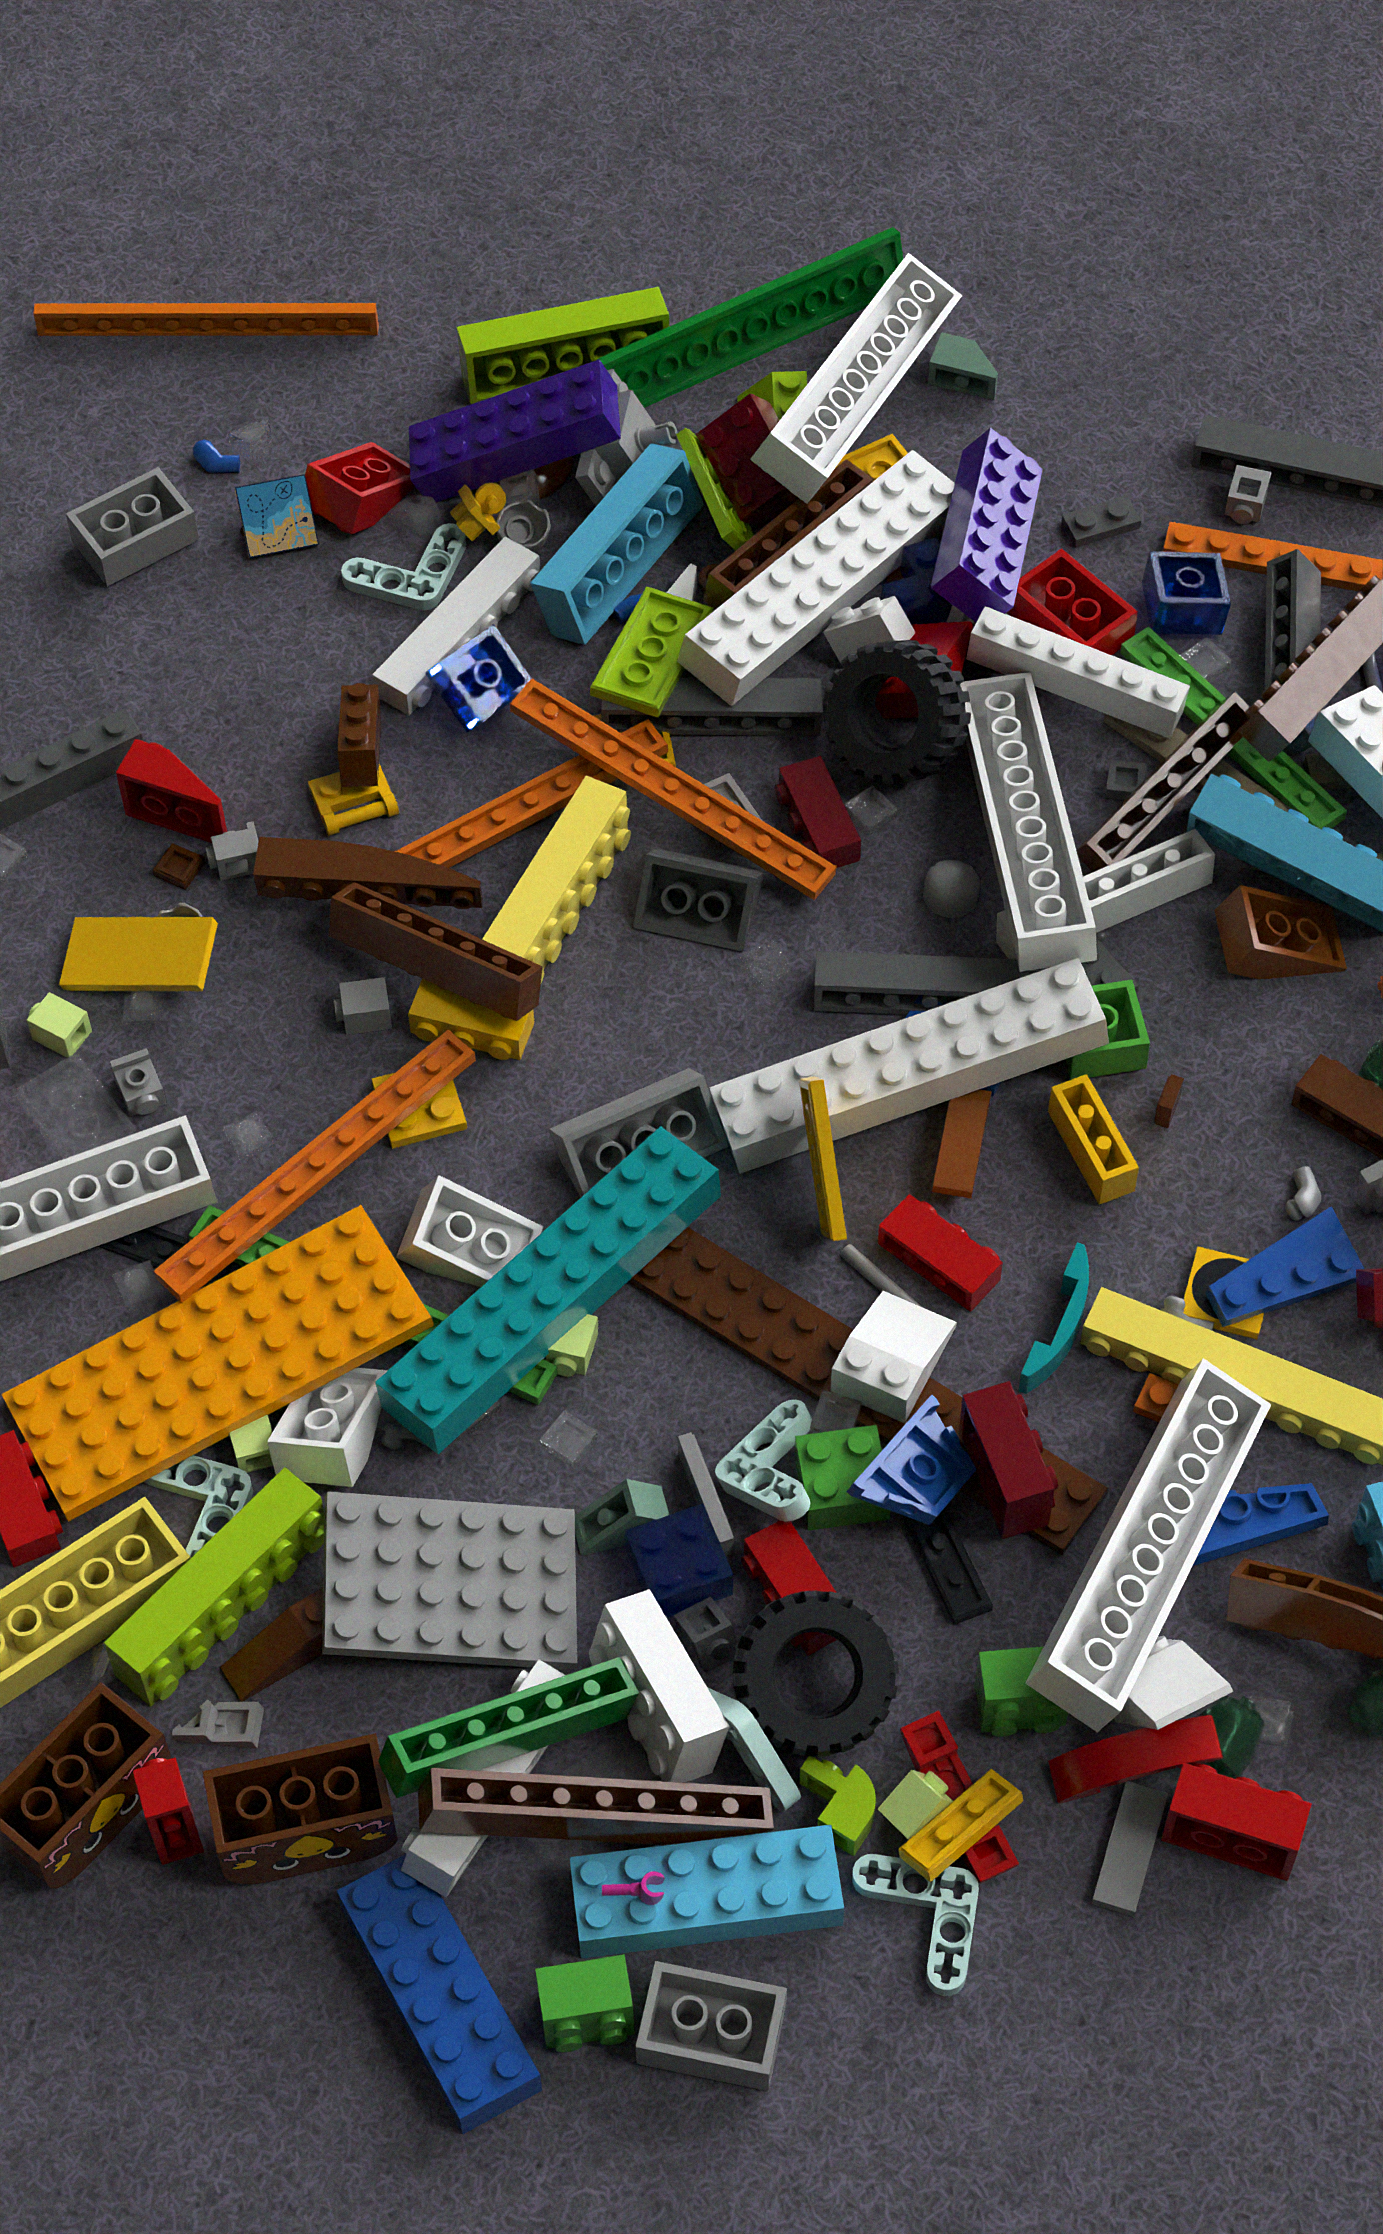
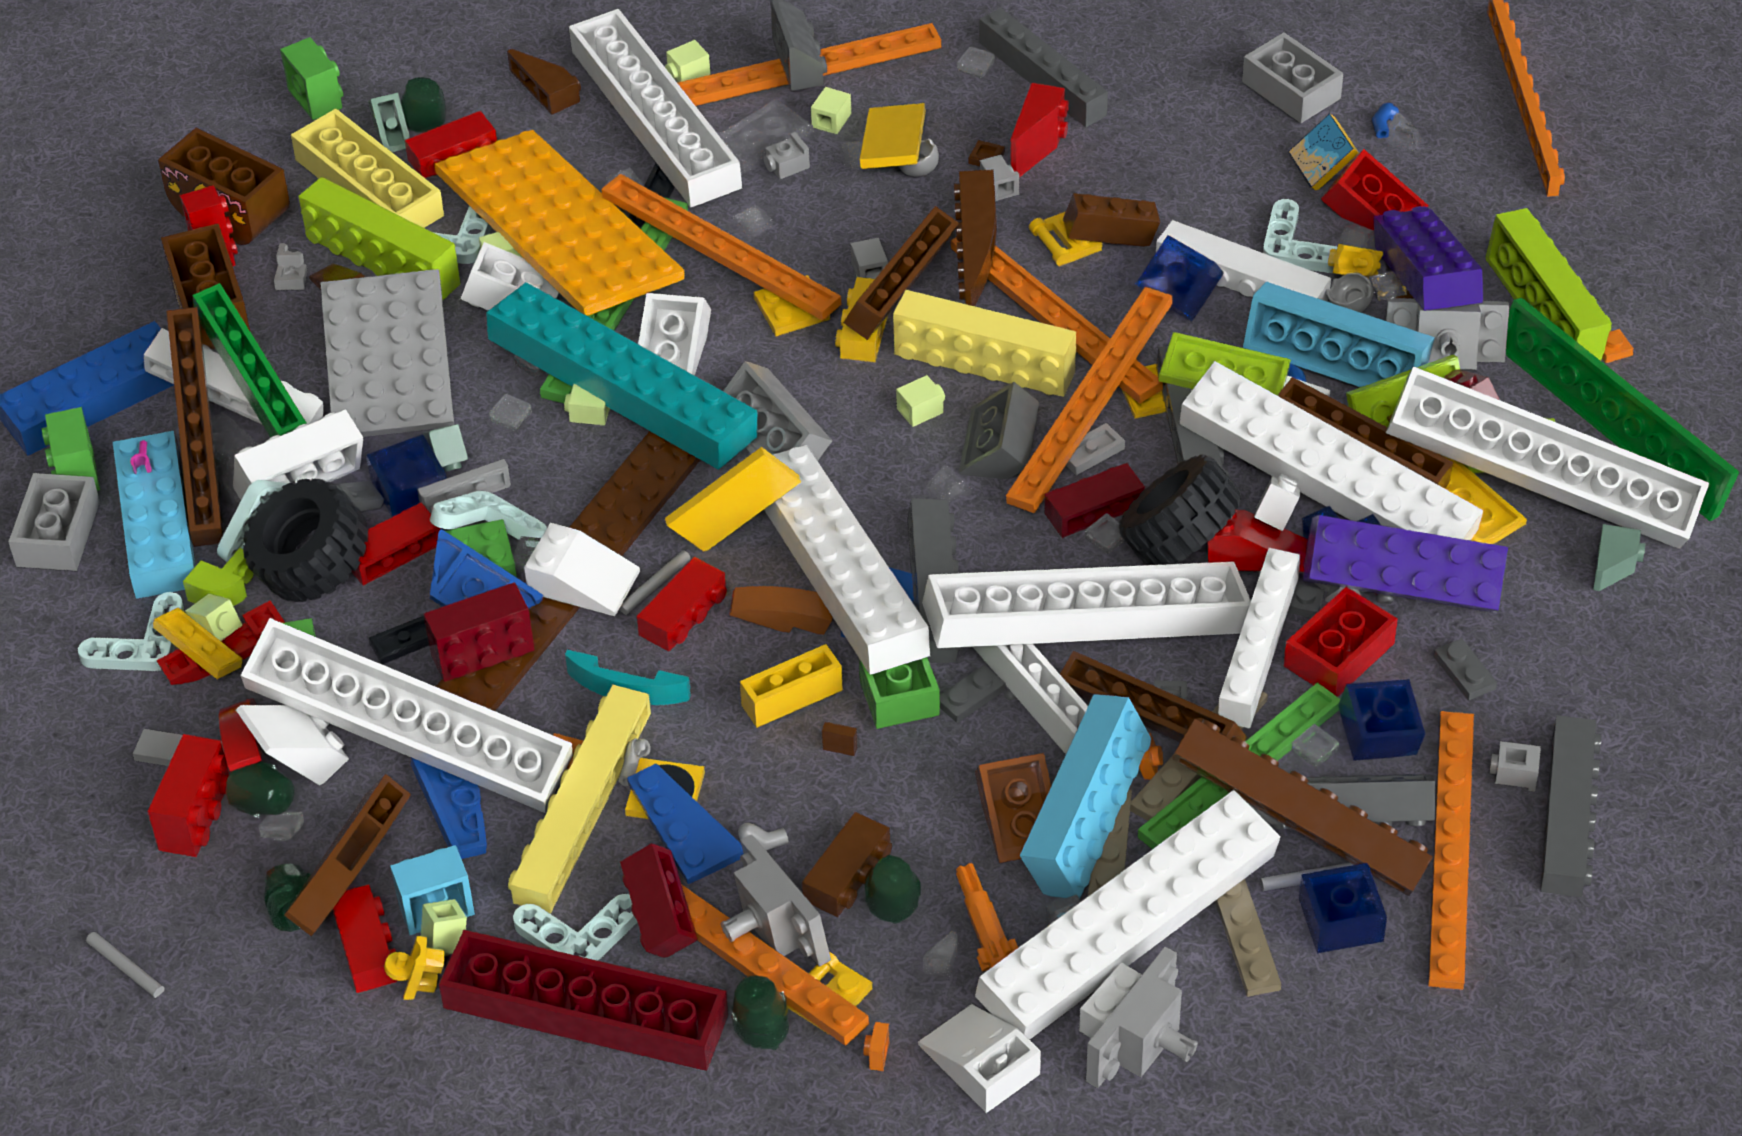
camera: 85 degrees right, 10 degrees down
(627, 972) = (920, 400): none -> yellowish green brick

